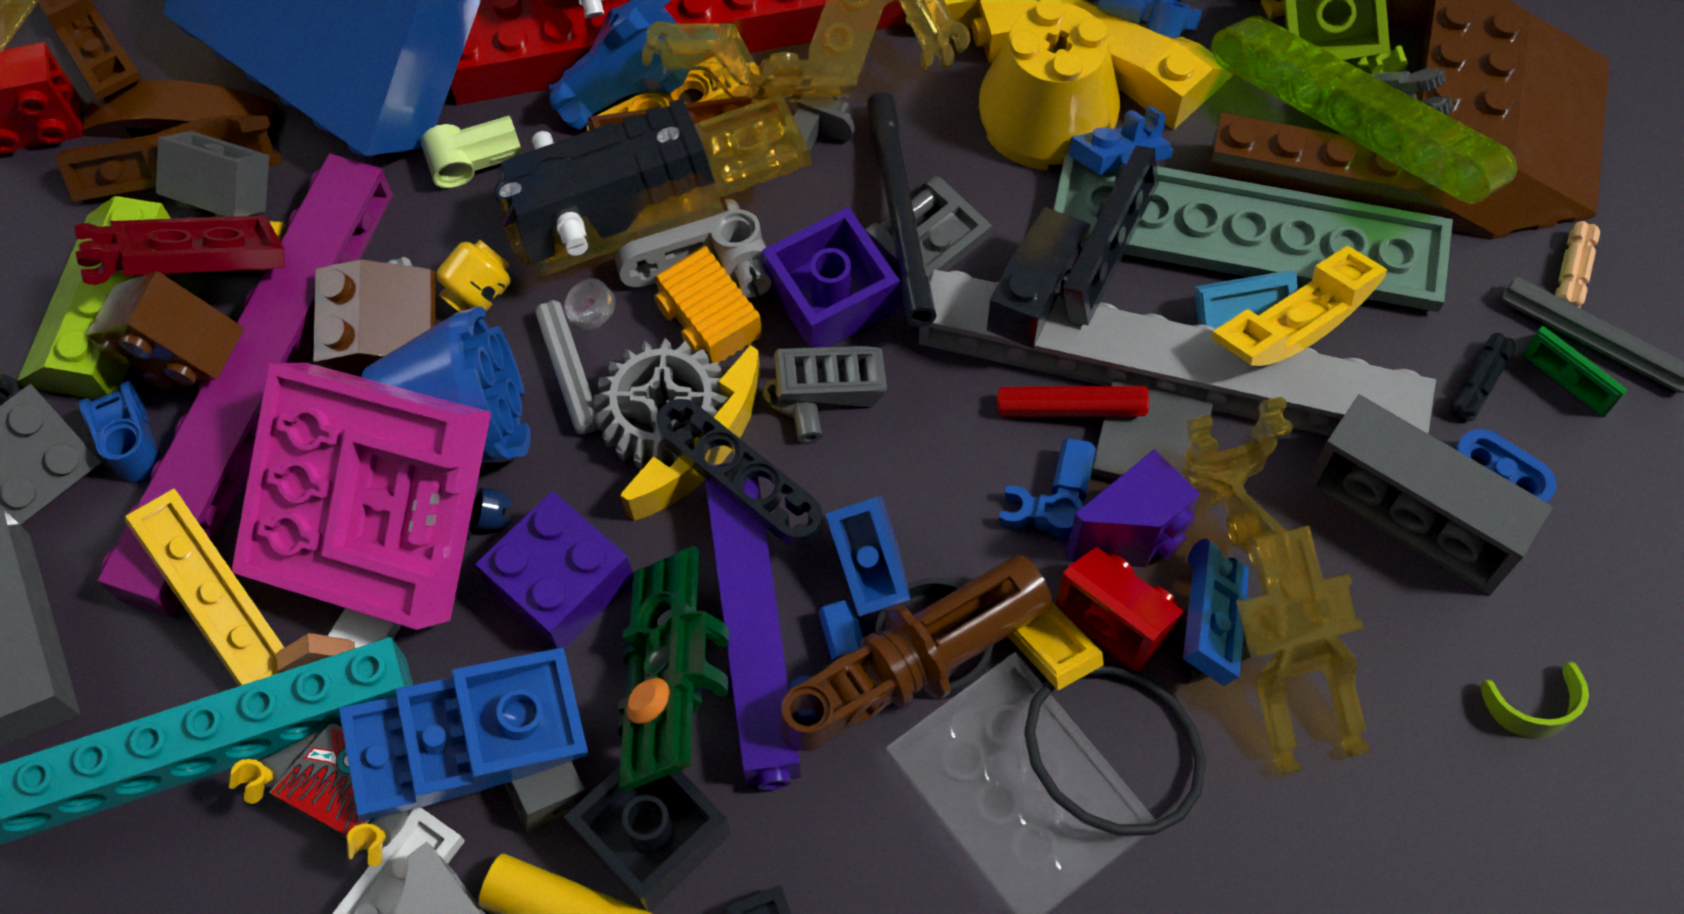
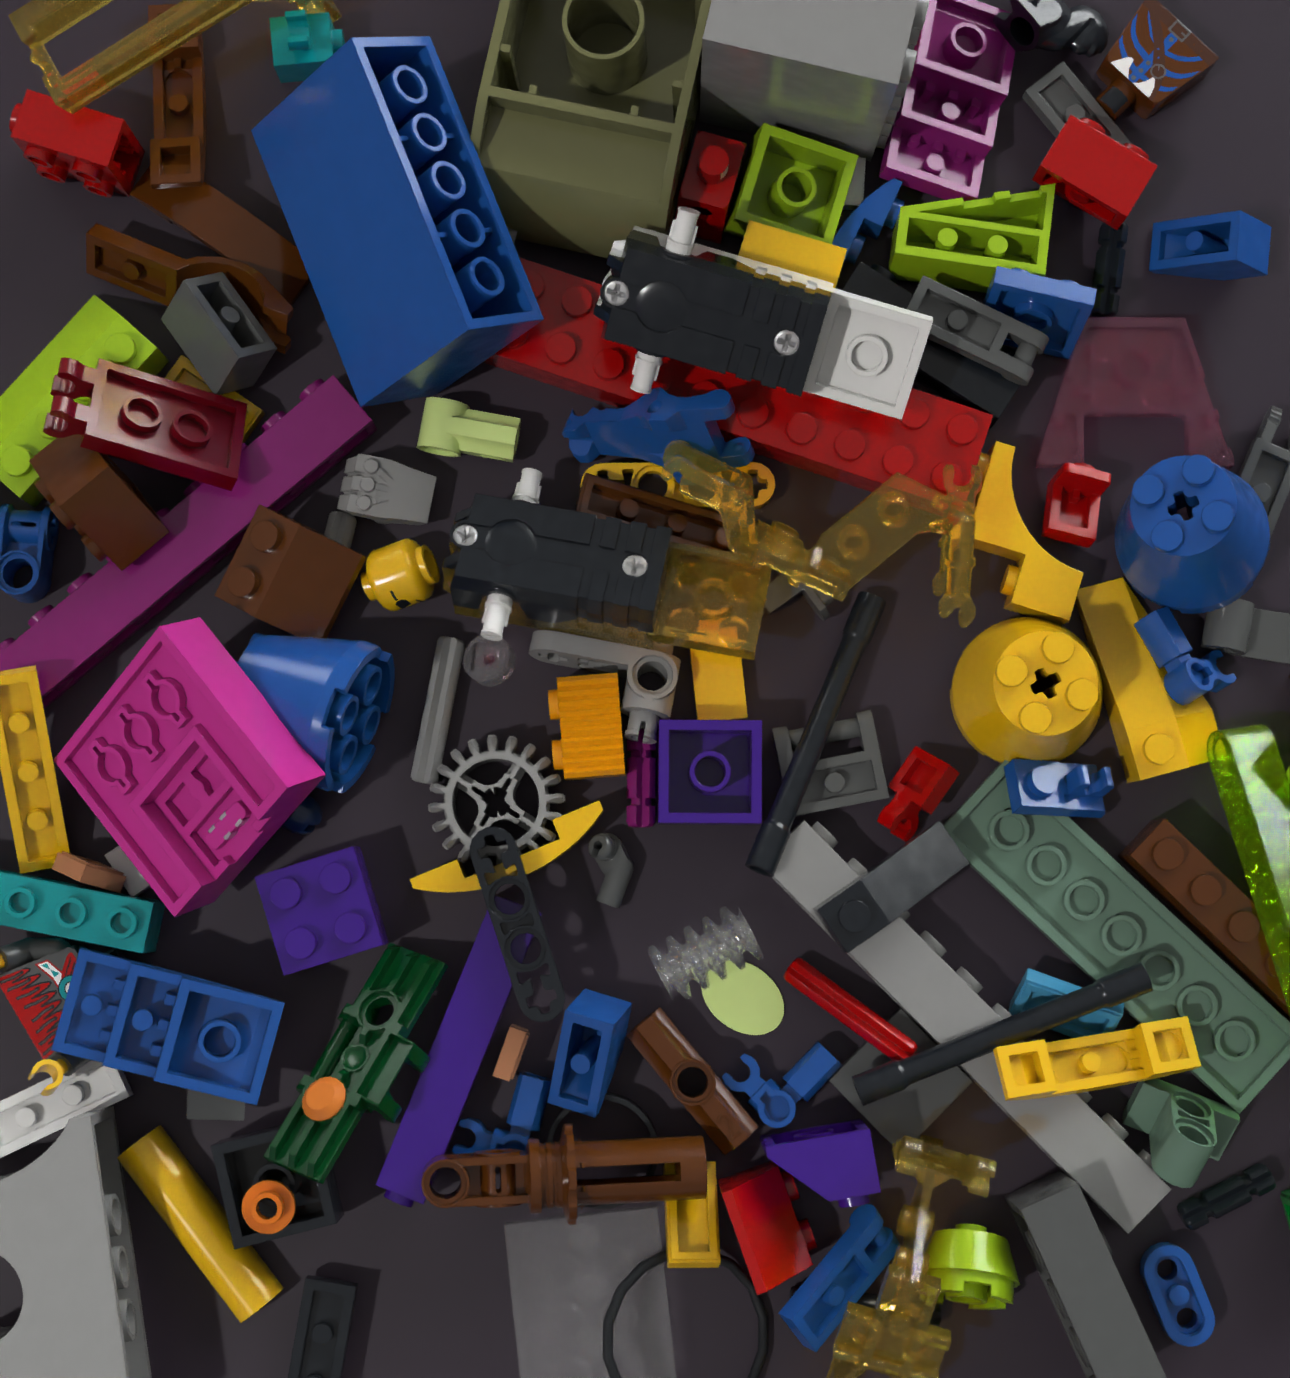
camera: 25 degrees right, 20 degrees up
(424, 223) = (386, 491): none -> light grey hand
(663, 844) = (280, 1195): none -> orange plate
(775, 322) = (640, 783): none -> magenta axle
(780, 207) = (718, 686): none -> yellow tile
(800, 597) = (511, 1052): none -> nougat tile
(862, 375) = (686, 873): dark grey slope -> none
(915, 421) = (705, 952): none -> clear piece
(943, 519) = (714, 1105): none -> reddish brown piece
(974, 451) = (745, 1000): none -> yellowish green sticker
(1010, 205) = (917, 786): none -> red plate
(1106, 244) = (994, 874): black plate -> none
(1148, 409) = (1103, 993): none -> black piece
(1337, 529) = (973, 1267): none -> lime cone
(1401, 334) = (1181, 1129): none -> sand green tile

